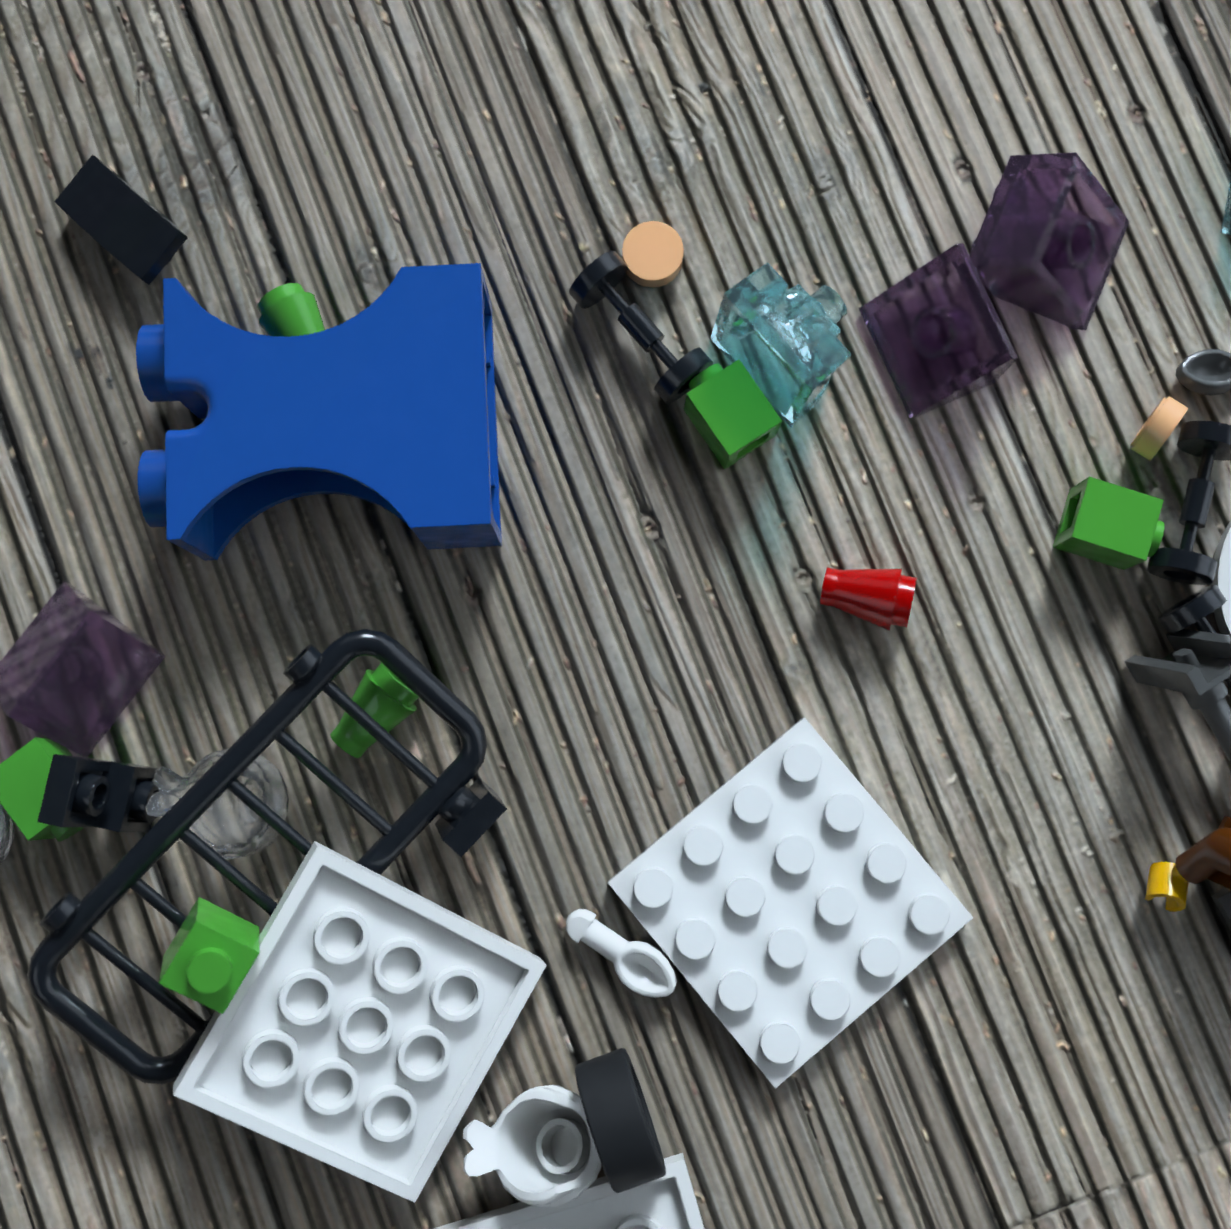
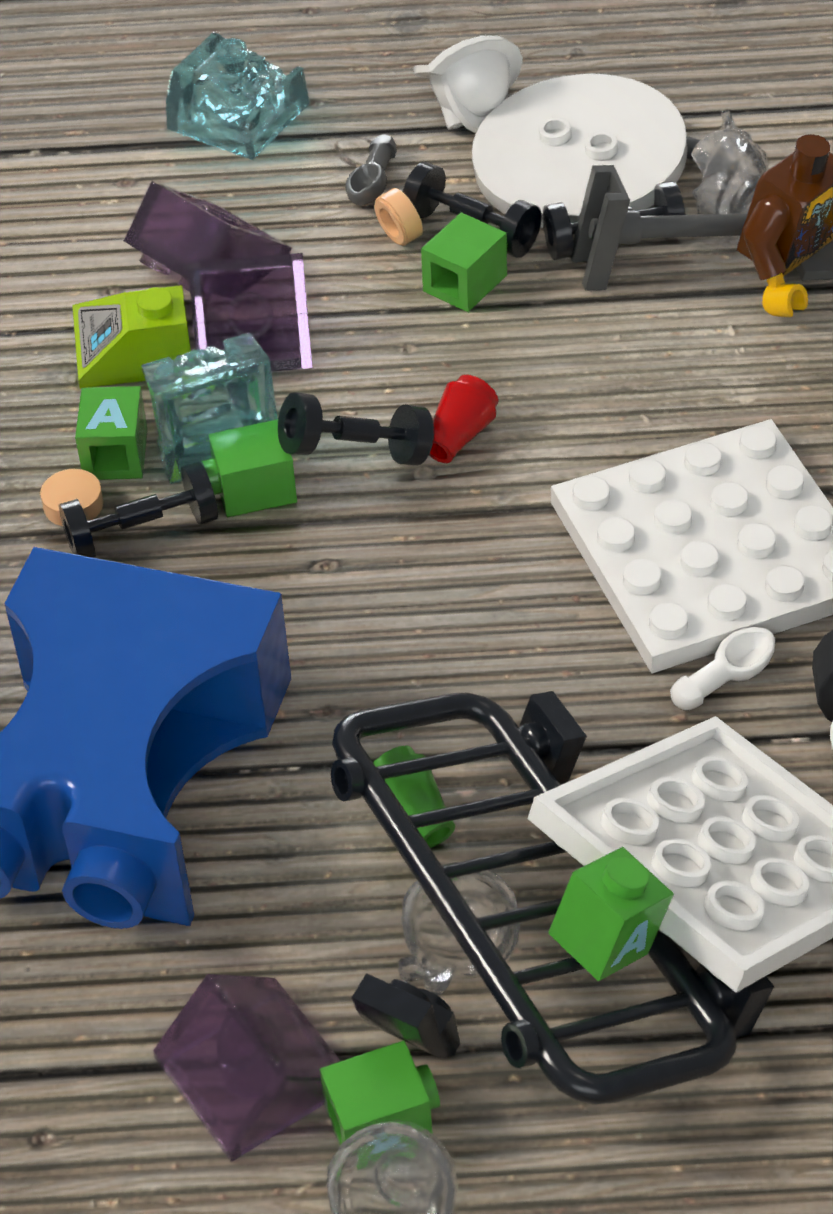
camera: 70 degrees left, 35 degrees down
(734, 250) = (112, 432): none -> bright green brick
(826, 552) = (302, 423): none -> black wheel
(892, 218) = (127, 331): none -> lime slope

